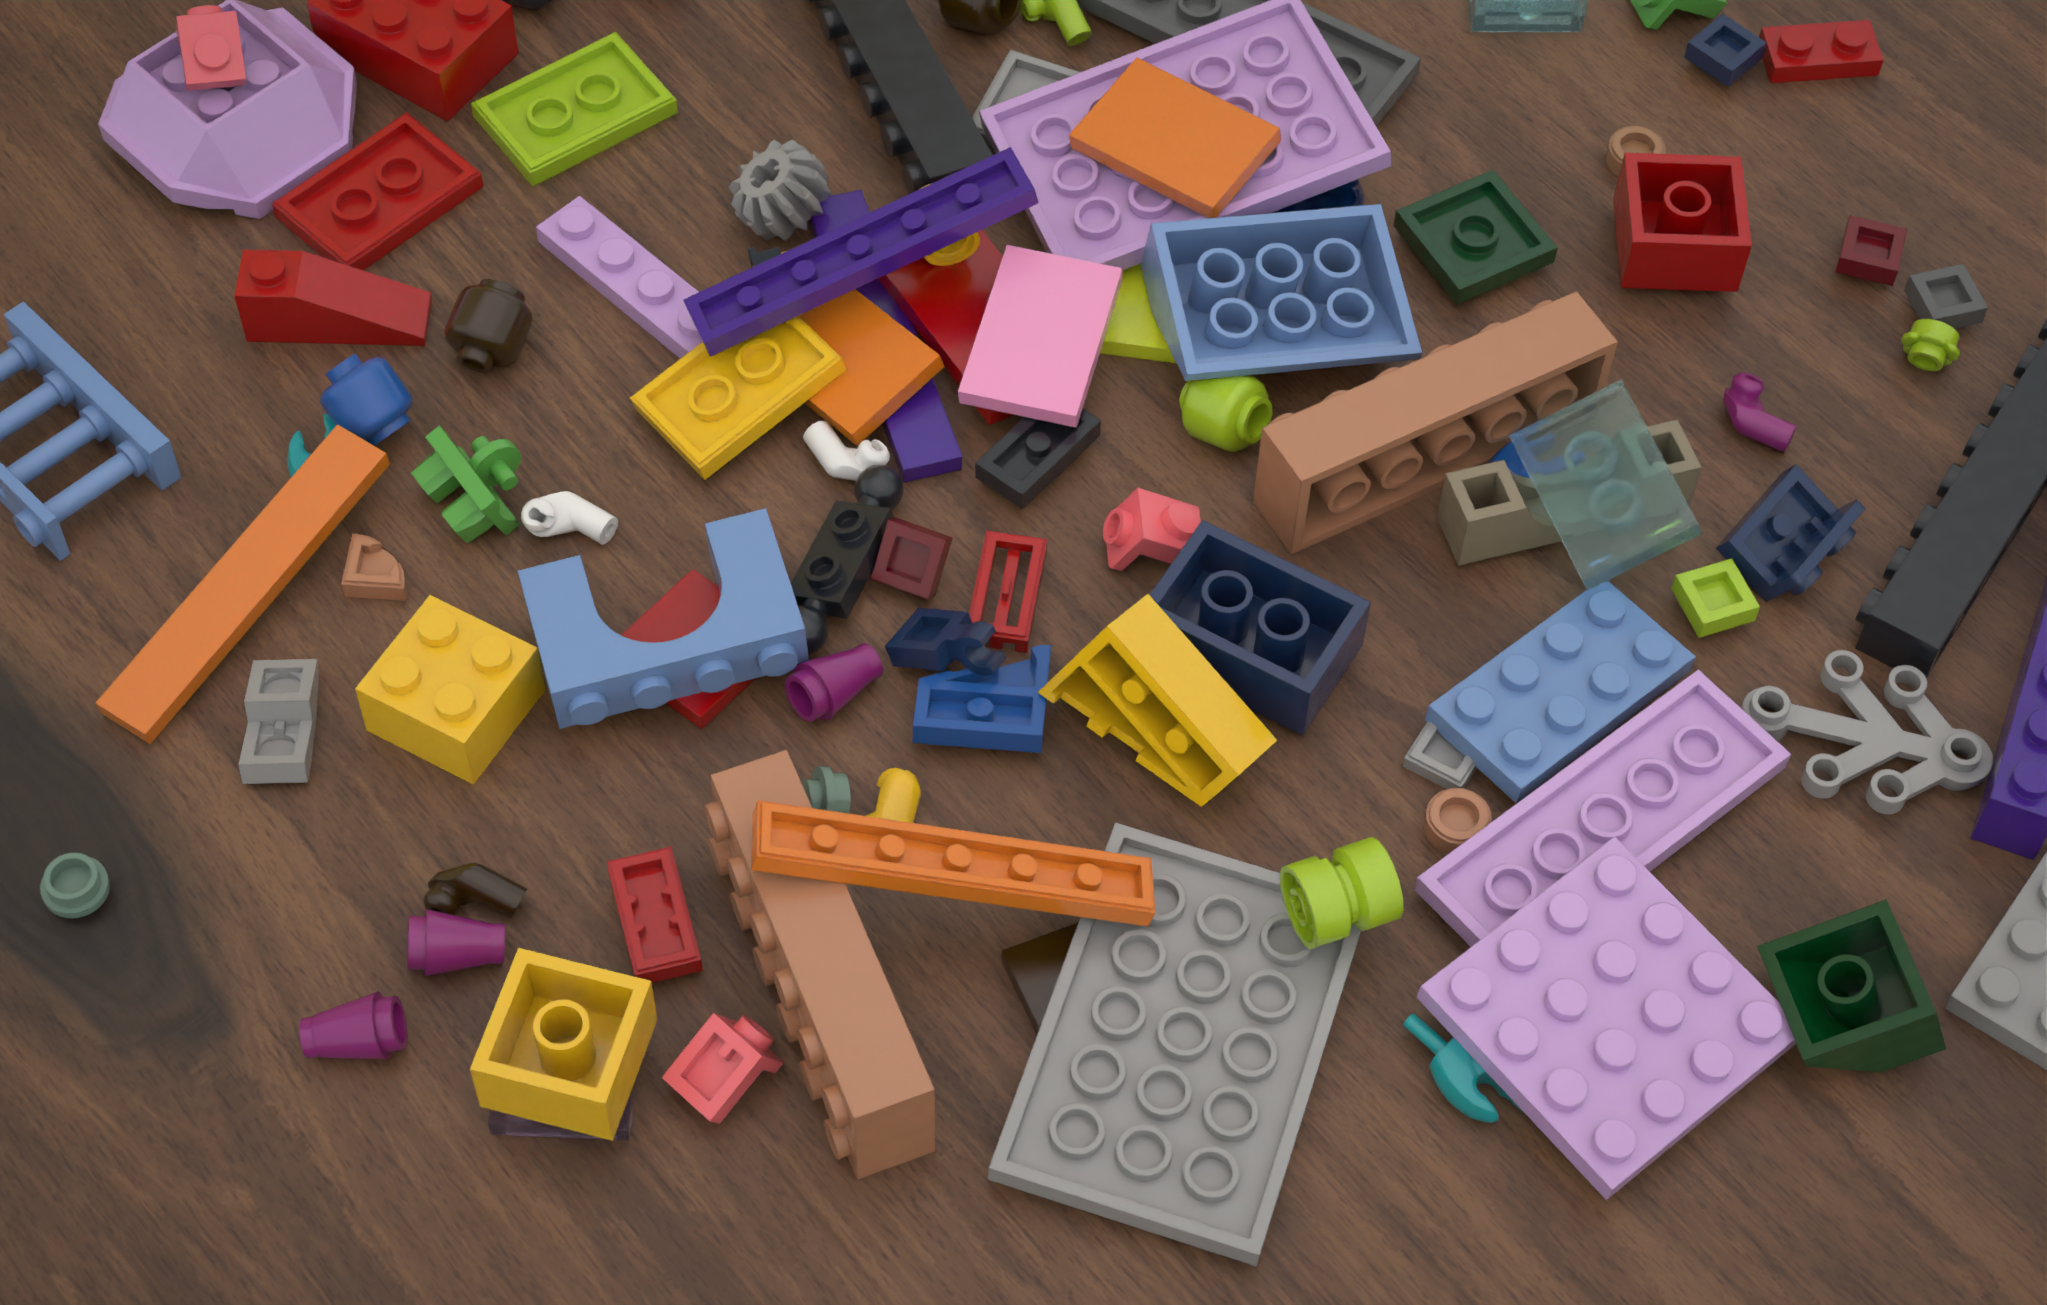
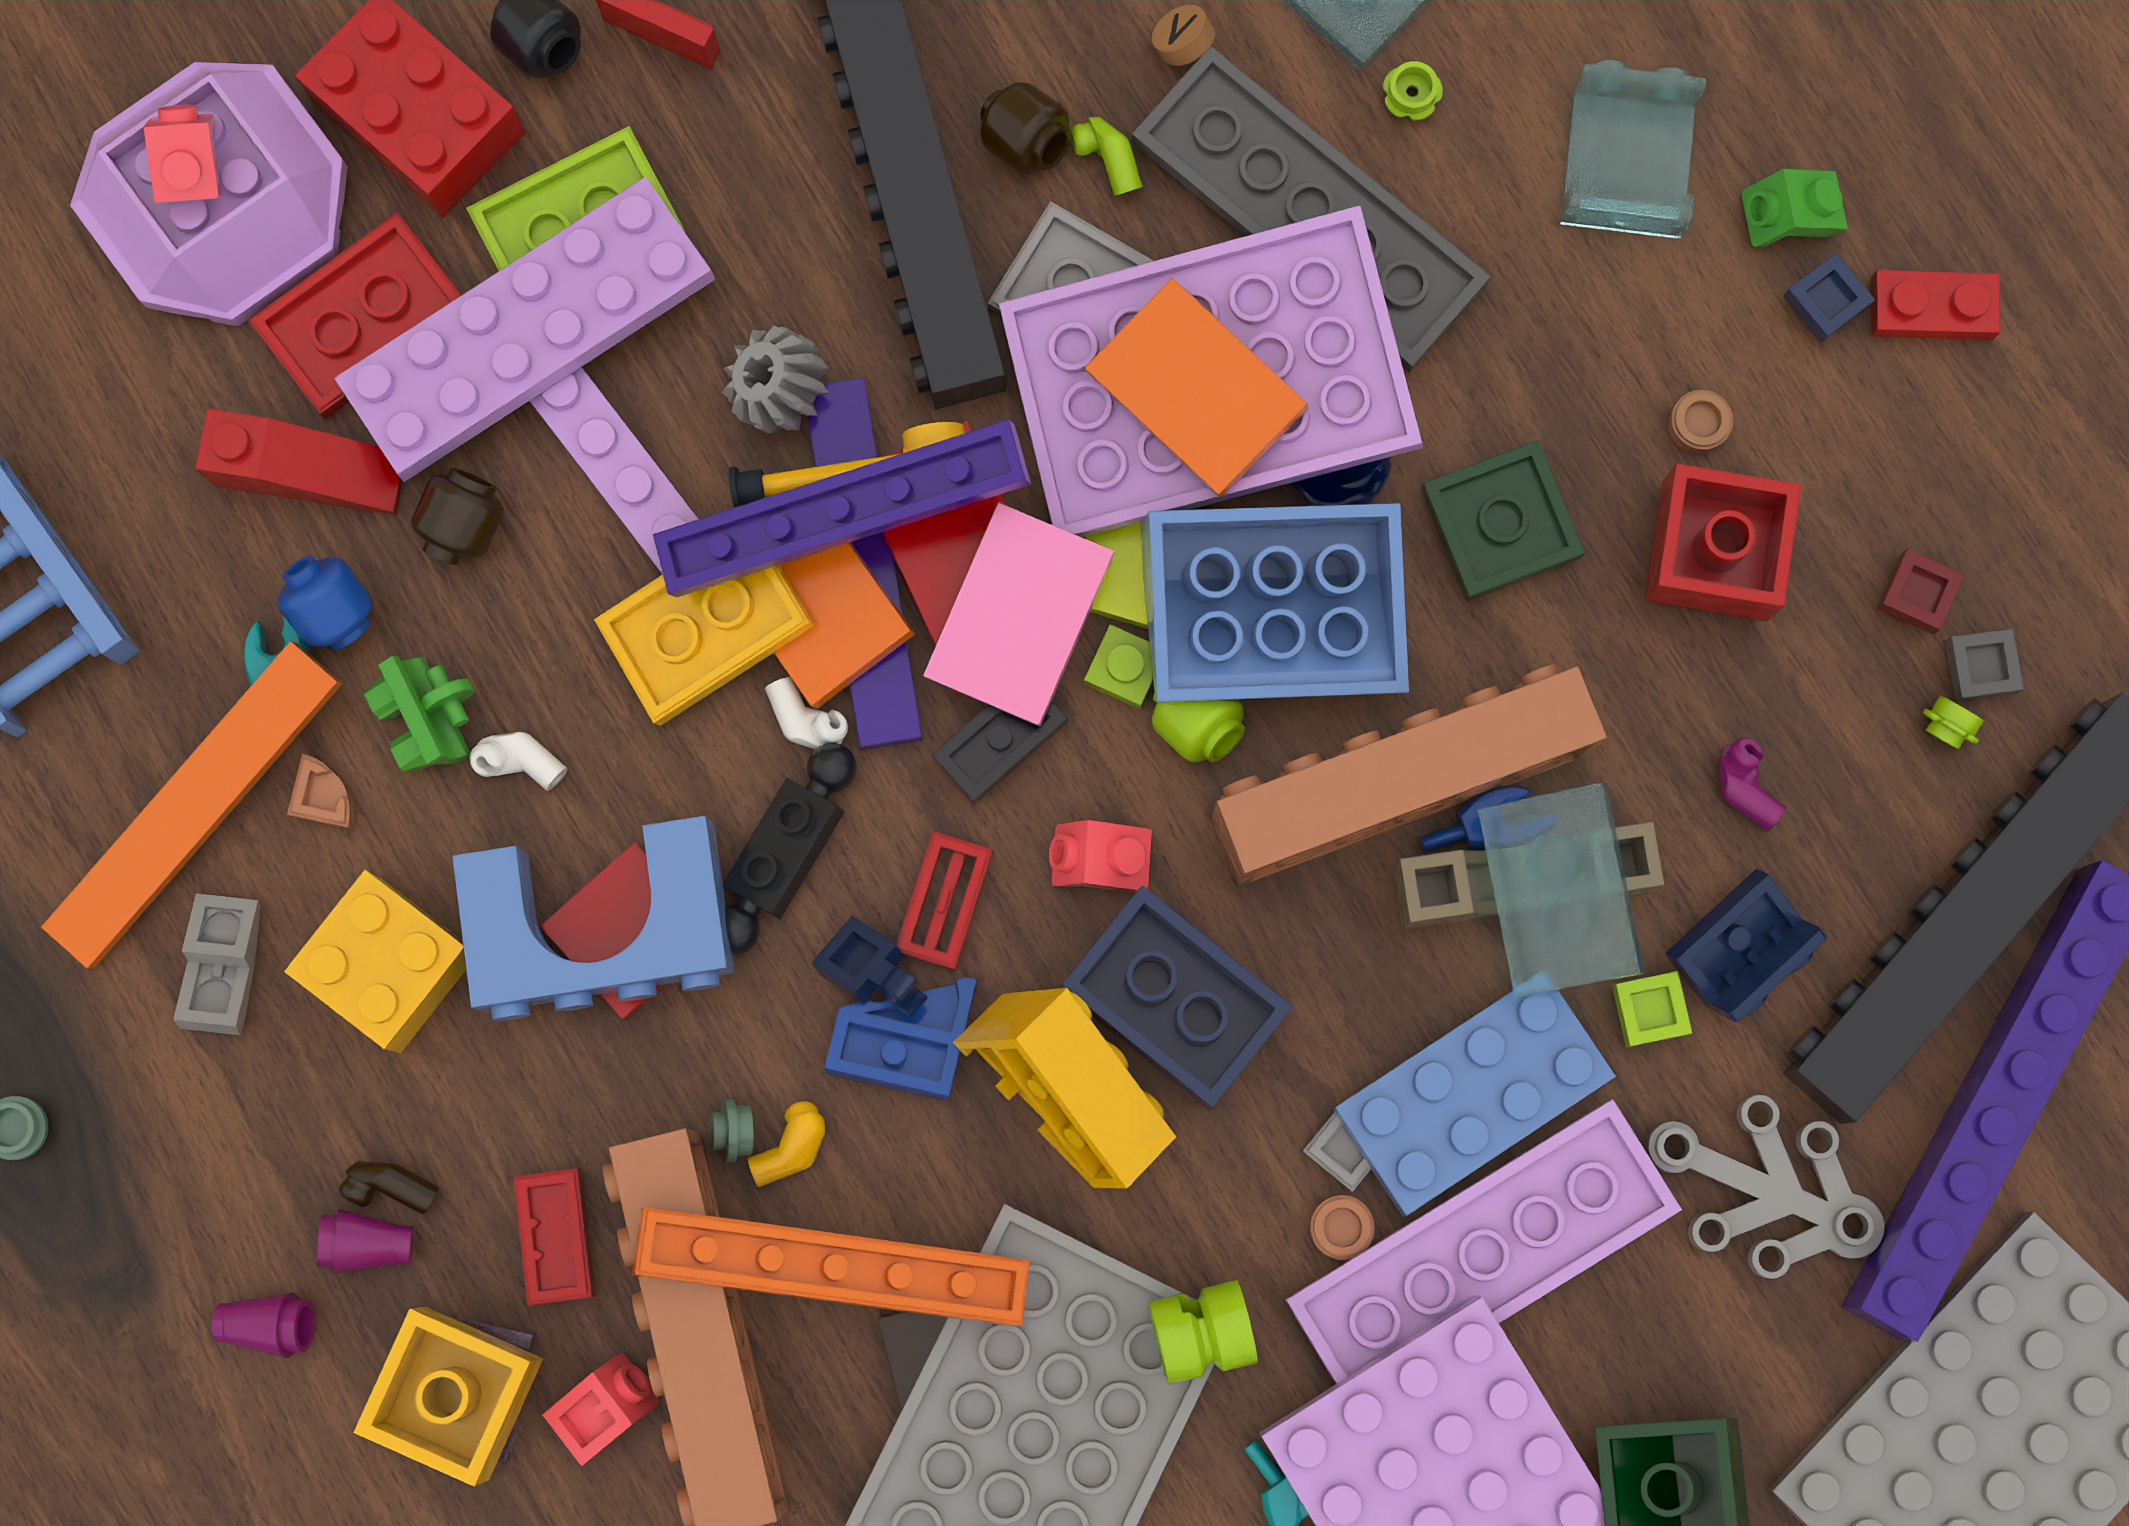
camera: 10 degrees right, 25 degrees up
(535, 177) = (524, 329): none -> lavender plate
(828, 683) = (757, 993): magenta cone -> none
(911, 558) = (852, 860): dark red plate -> none
(1146, 387) = (1122, 667): none -> lime plate

